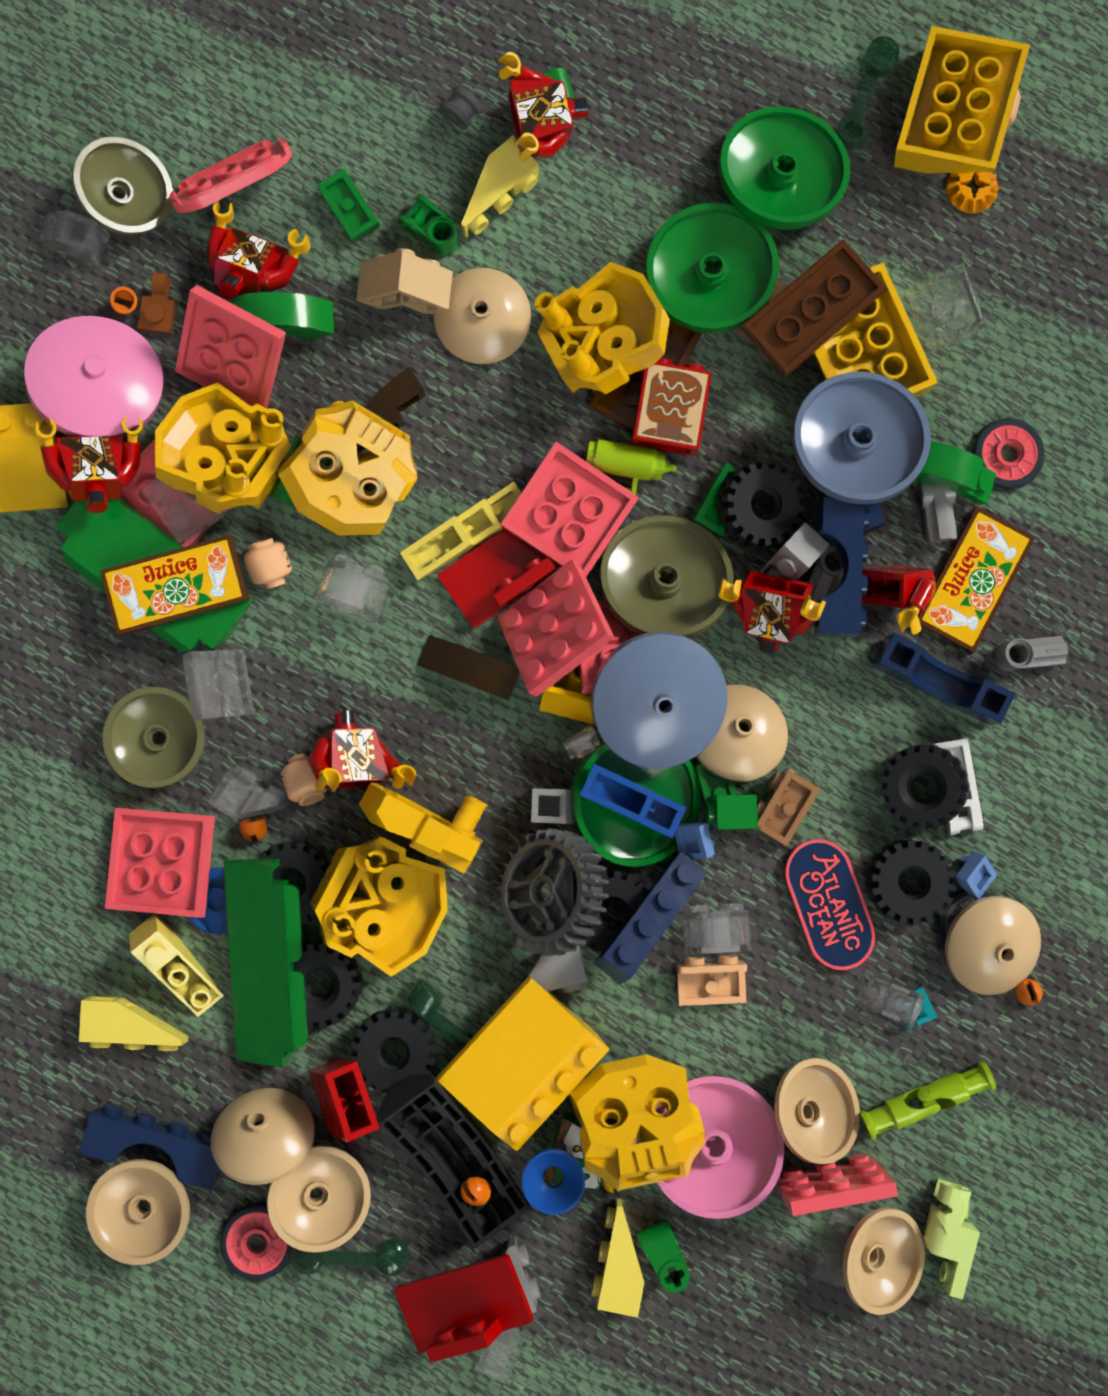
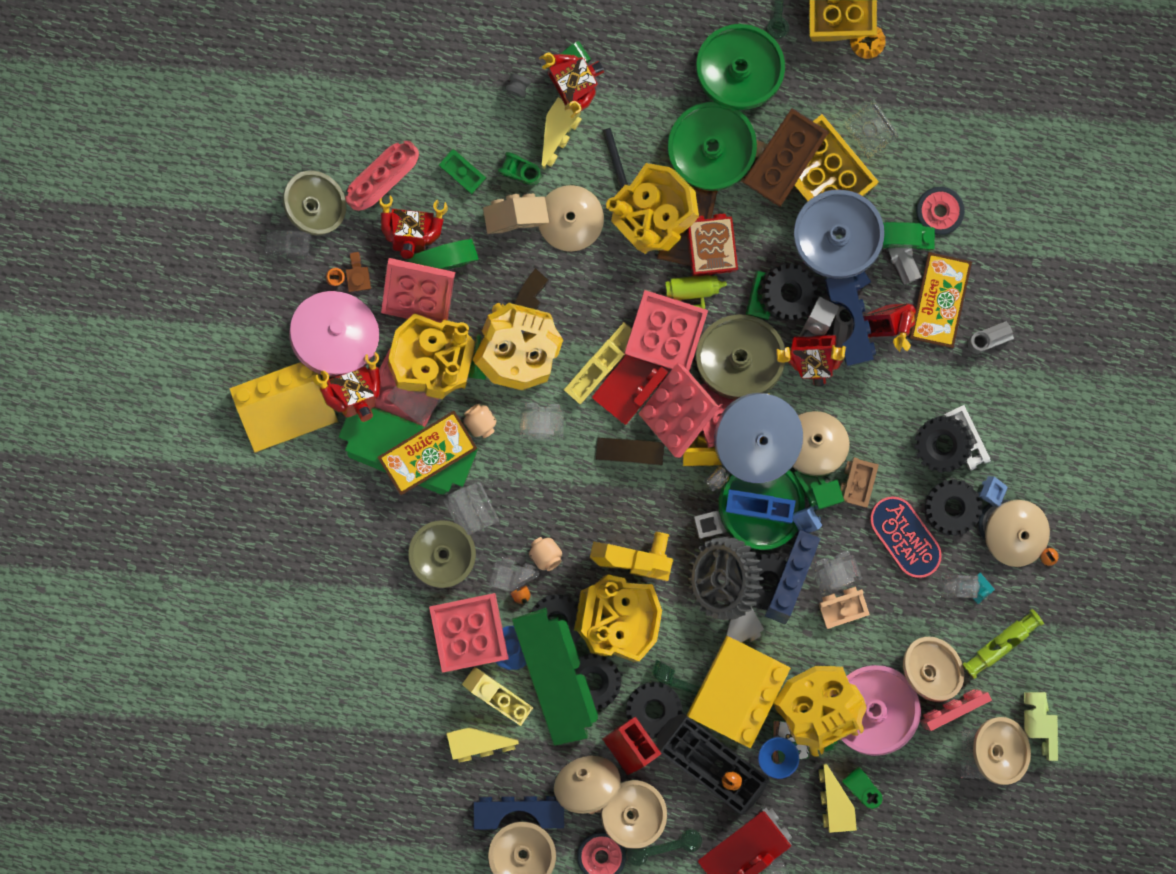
camera: 10 degrees left, 0 degrees up
(354, 758) = (575, 530): torso -> none
(569, 246) = (615, 158): none -> black bar
(960, 690) = (936, 372): dark blue arch -> none

